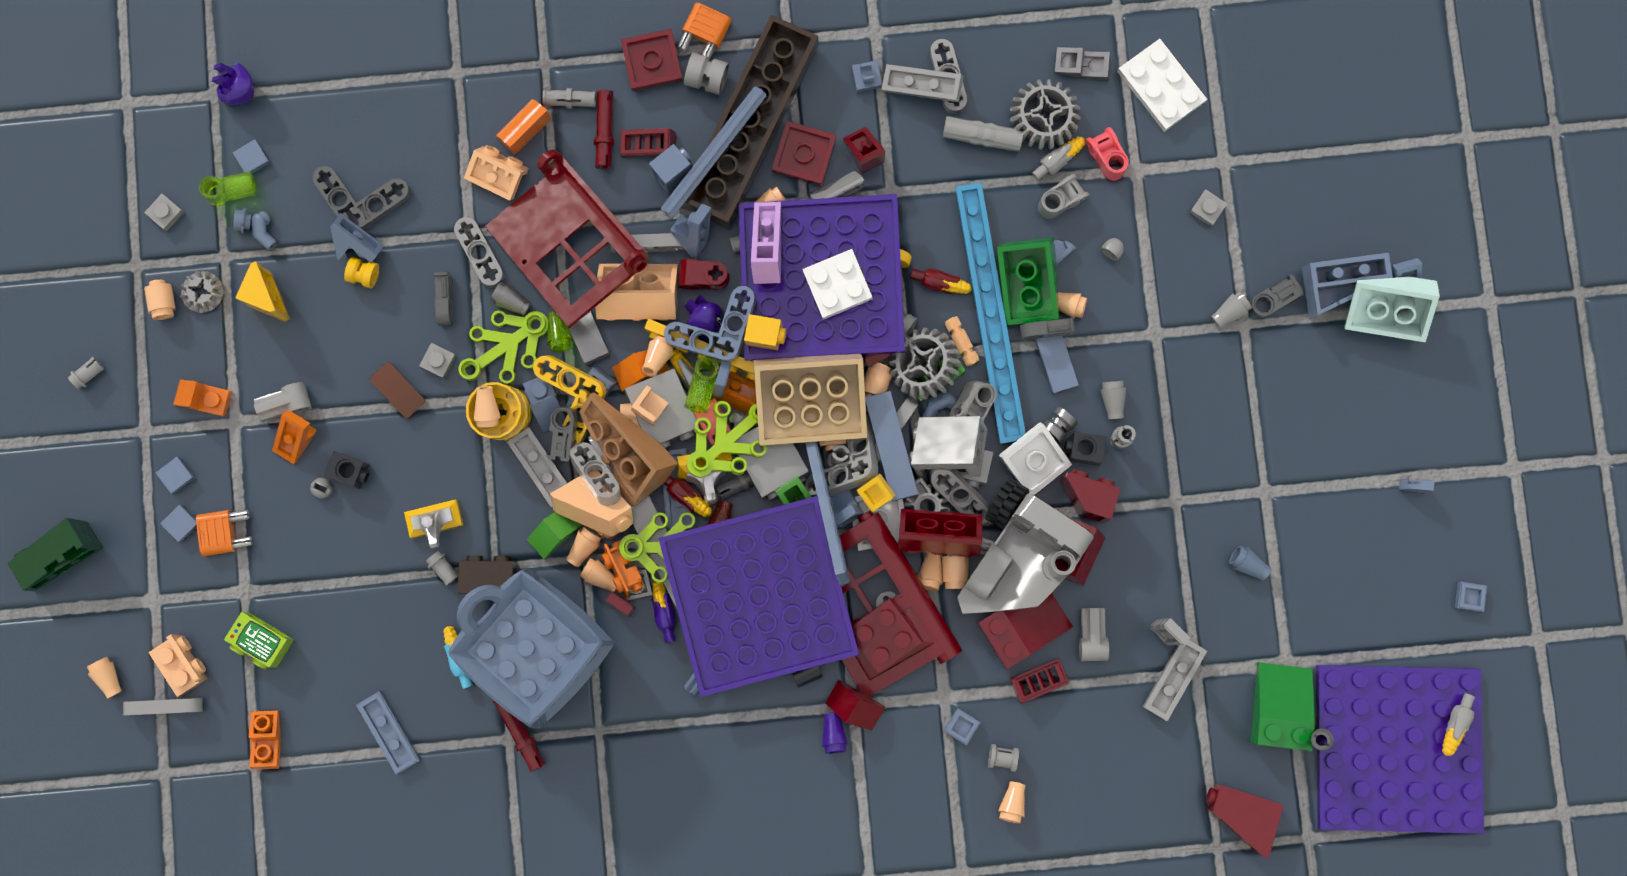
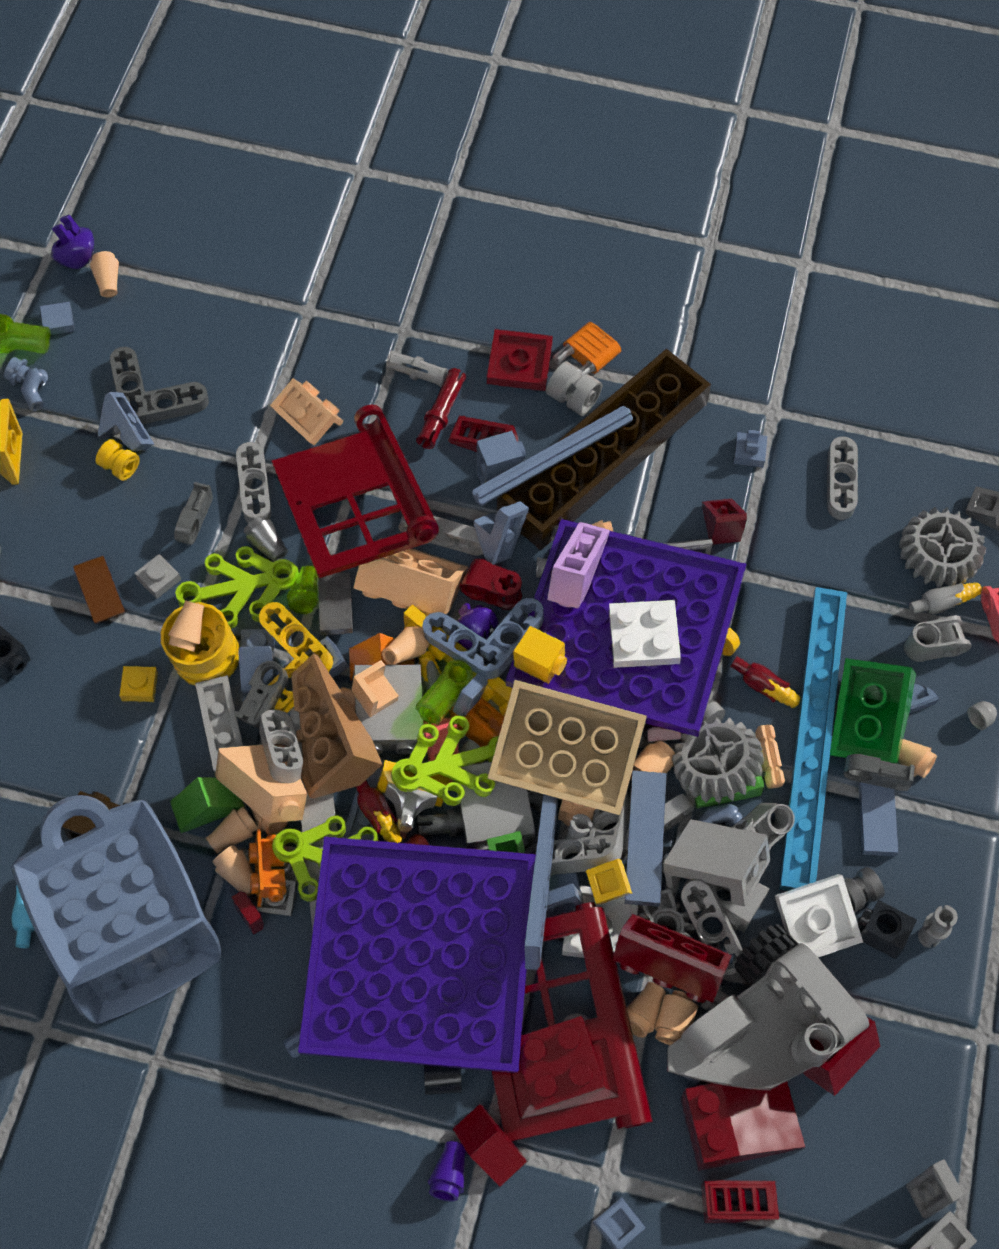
camera: 15 degrees right, 20 degrees down
(272, 99) = (105, 271): none -> light nougat cone
(433, 520) = (73, 741): piece -> none
(442, 568) = (54, 789): light grey pin -> none
(462, 455) = (138, 684): none -> yellow plate
(522, 738) = (59, 1036): dark red pin -> none
(524, 126) = (356, 379): orange brick -> none
(663, 611) = (296, 941): dark purple piece -> none
(804, 153) = (653, 500): dark red plate -> none
(922, 83) = (811, 471): light grey plate -> none
(982, 133) = (865, 545): light grey axle -> none
(1090, 497) = (877, 981): dark red slope -> none
(1093, 639) = (826, 1174): light grey piece -> none
(1114, 398) = (938, 880): light grey cone -> none

